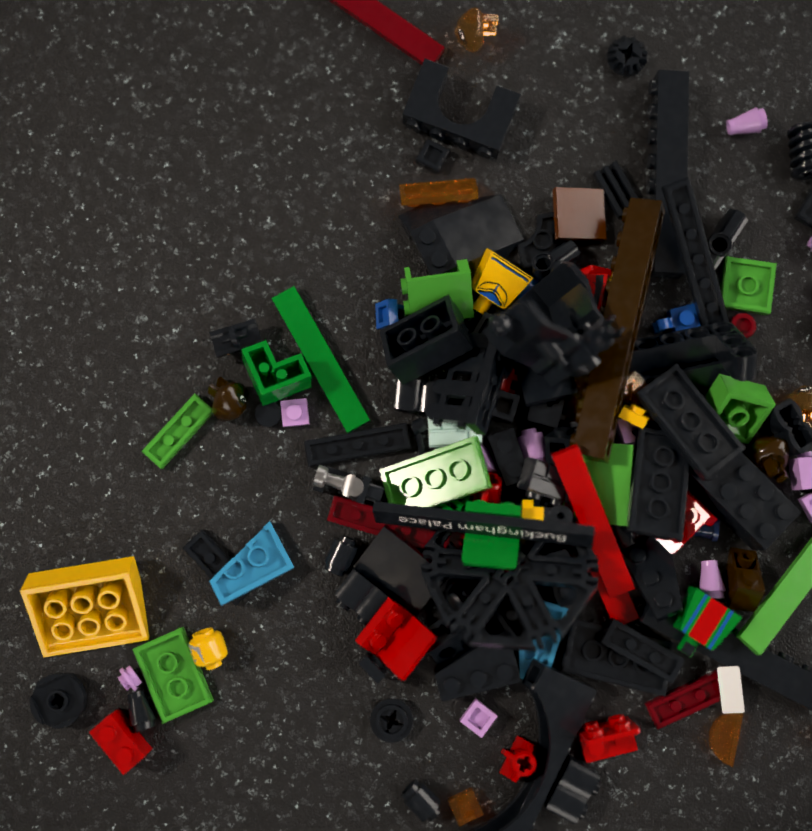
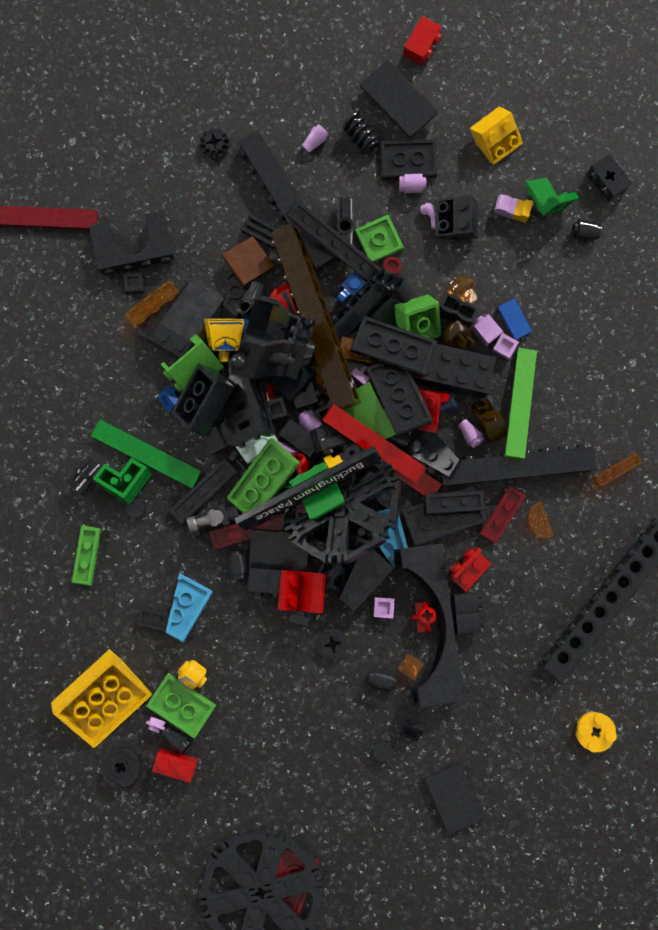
camera: 35 degrees left, 0 degrees up
(229, 399) = (105, 514): dark brown piece -> none
(295, 412) = (151, 497): lavender plate -> none
(473, 27) = (107, 185): clear orange piece -> none
(634, 415) = (358, 363): yellow plate -> none
(703, 621) = (478, 460): torso -> none
(730, 689) = (522, 491): white sticker -> none

